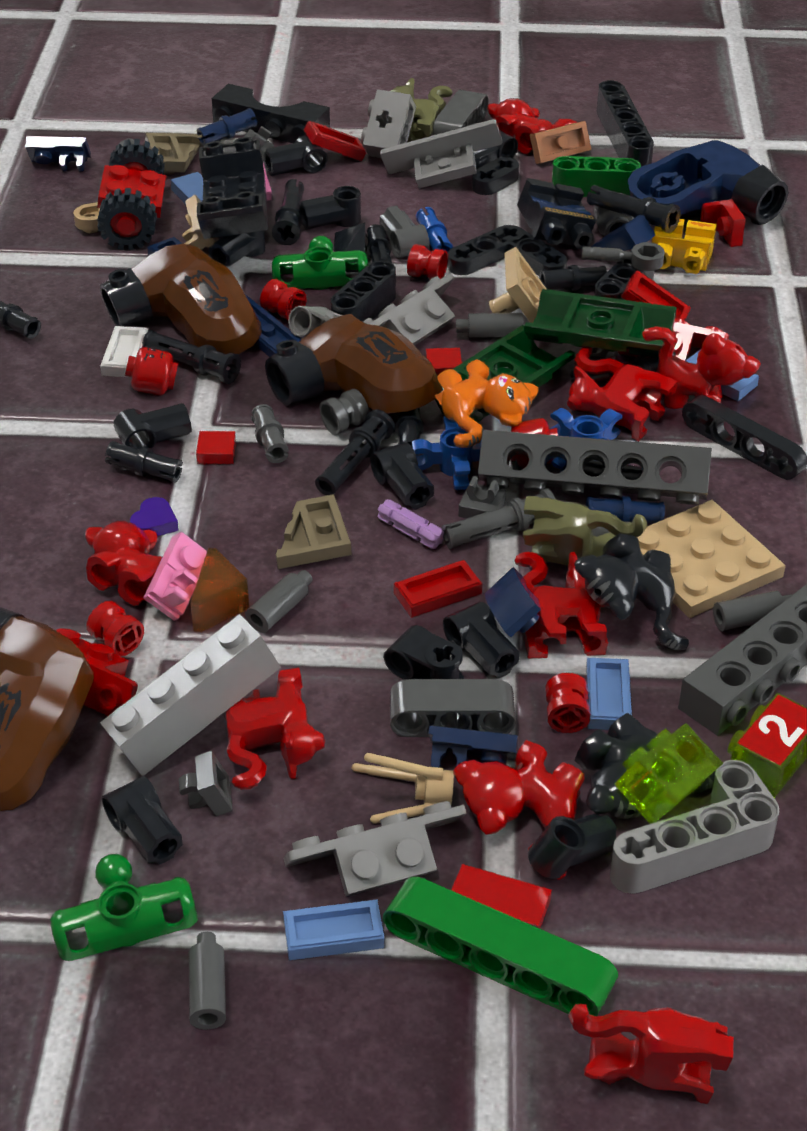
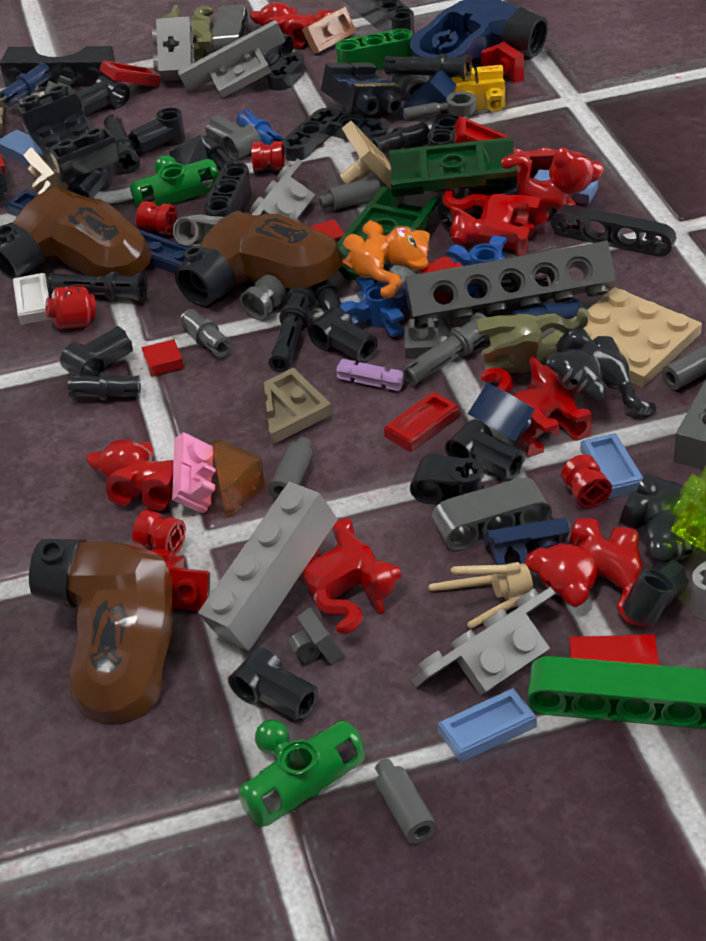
camera: 15 degrees left, 0 degrees up
(155, 515) = (141, 428): dark purple tile -> none

